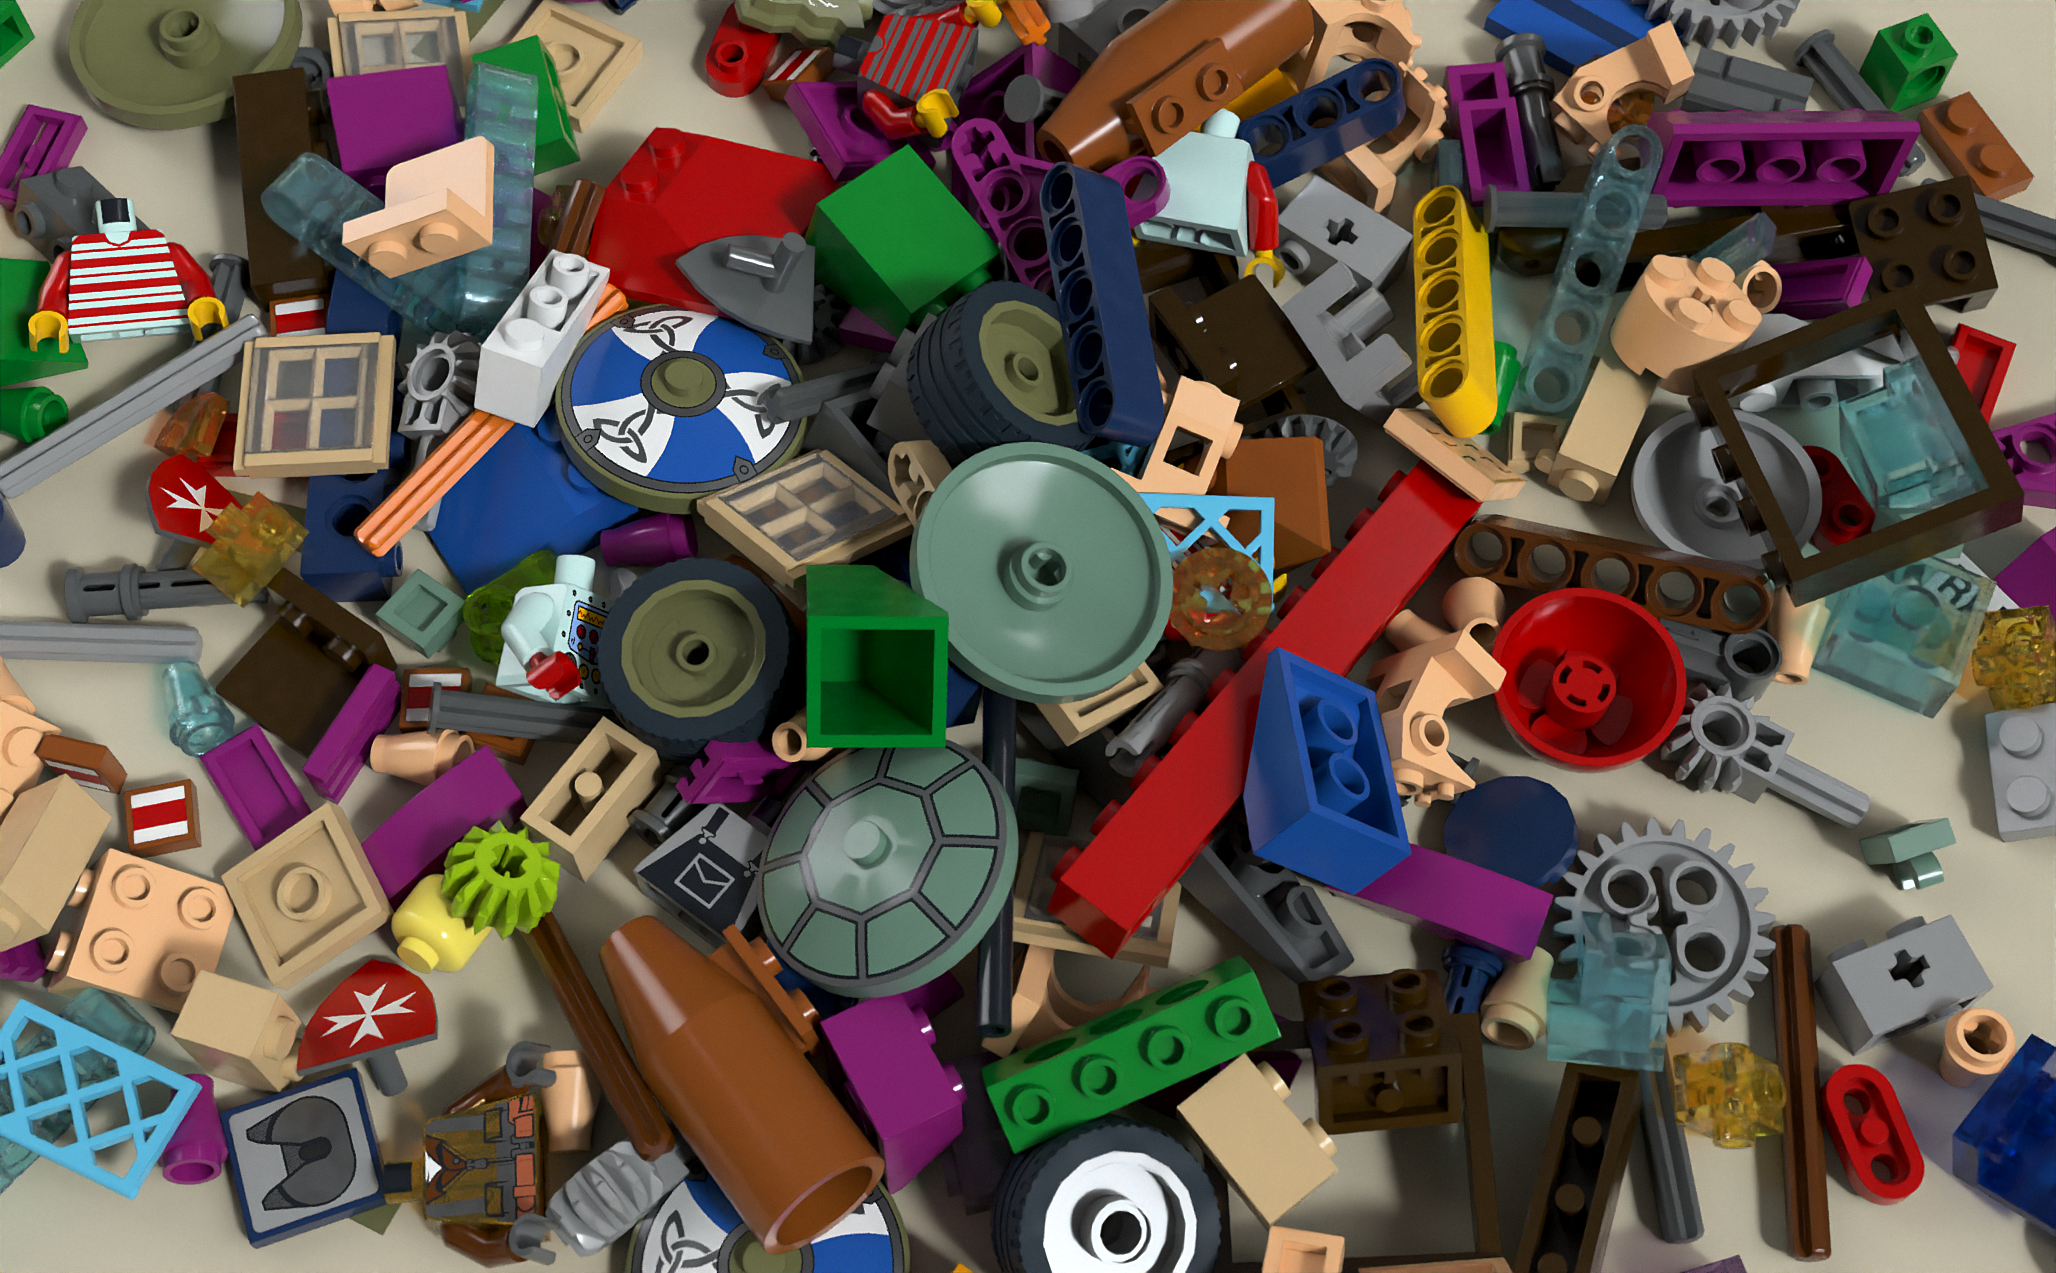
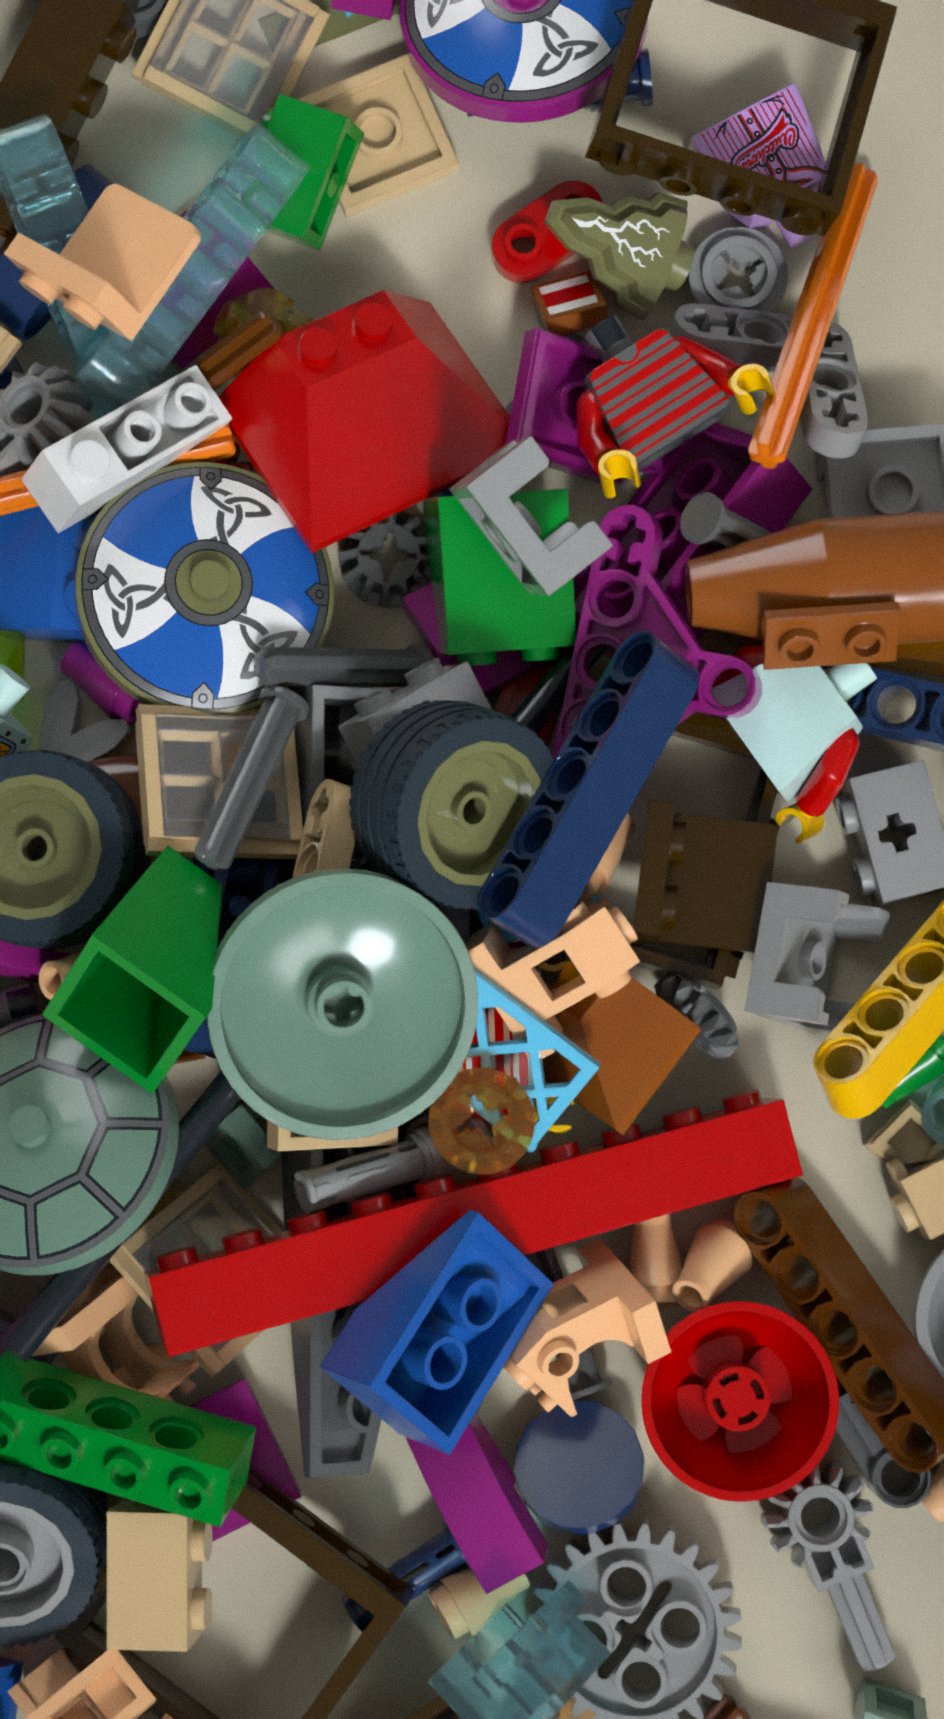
camera: 35 degrees right, 20 degrees up
(391, 120) = (166, 126): magenta slope -> none
(758, 282) = (346, 523): dark grey shield -> none
(814, 436) = (250, 776): none -> dark grey axle
(896, 168) = (513, 531): none -> light grey panel
(1382, 1052) = (310, 1571): dark brown bracket -> none
(1455, 458) = (808, 1134): light nougat tile -> none

